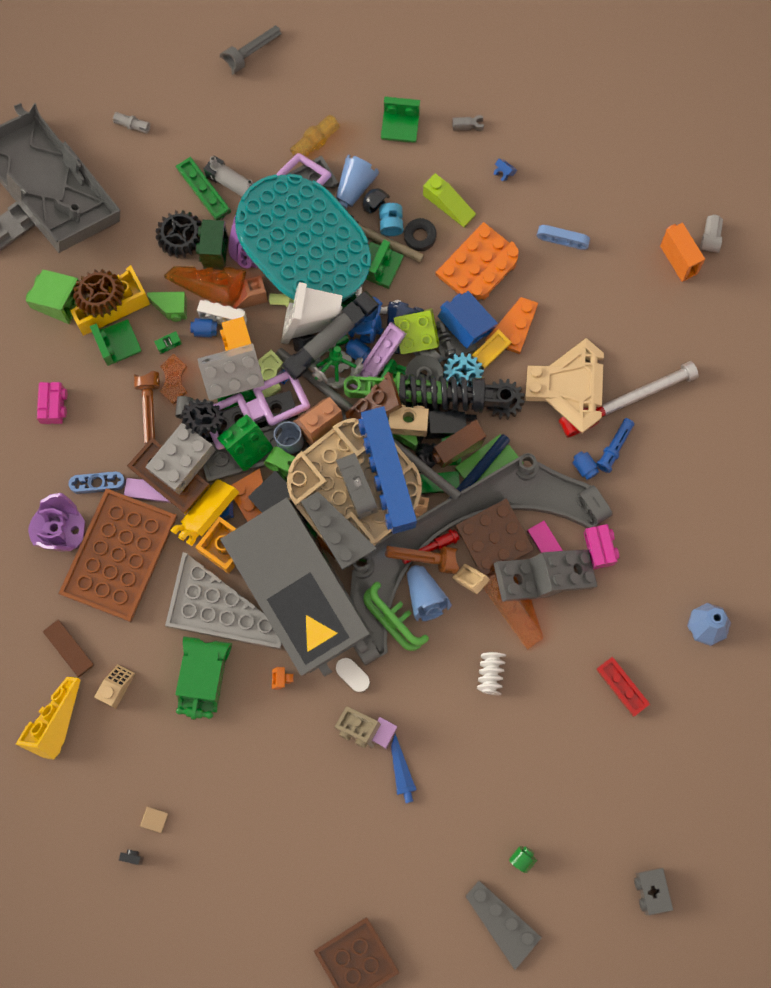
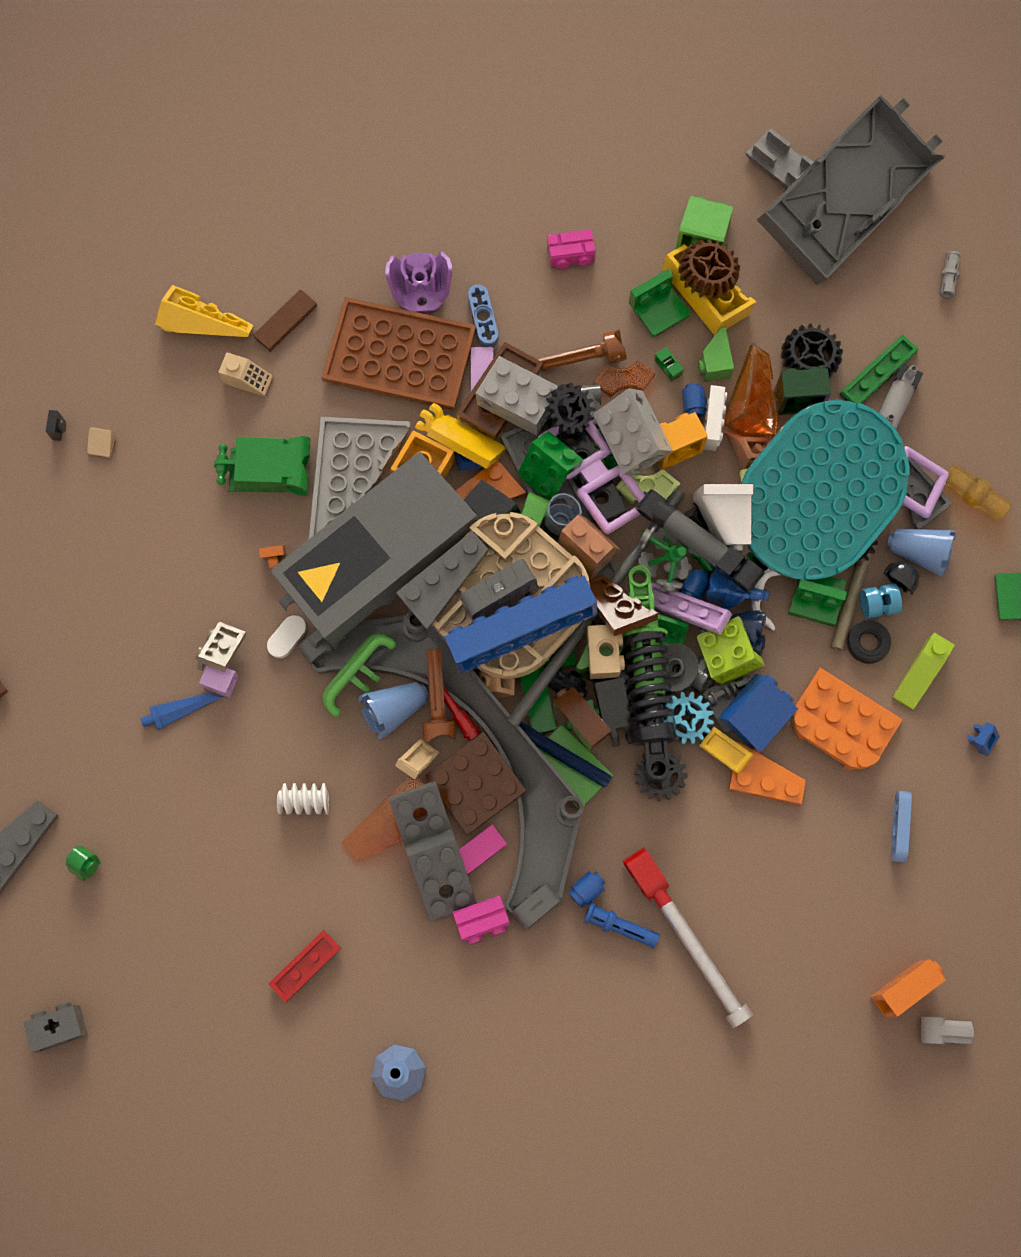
camera: 80 degrees right, 0 degrees up
(571, 385) = (693, 857): tan plate -> none

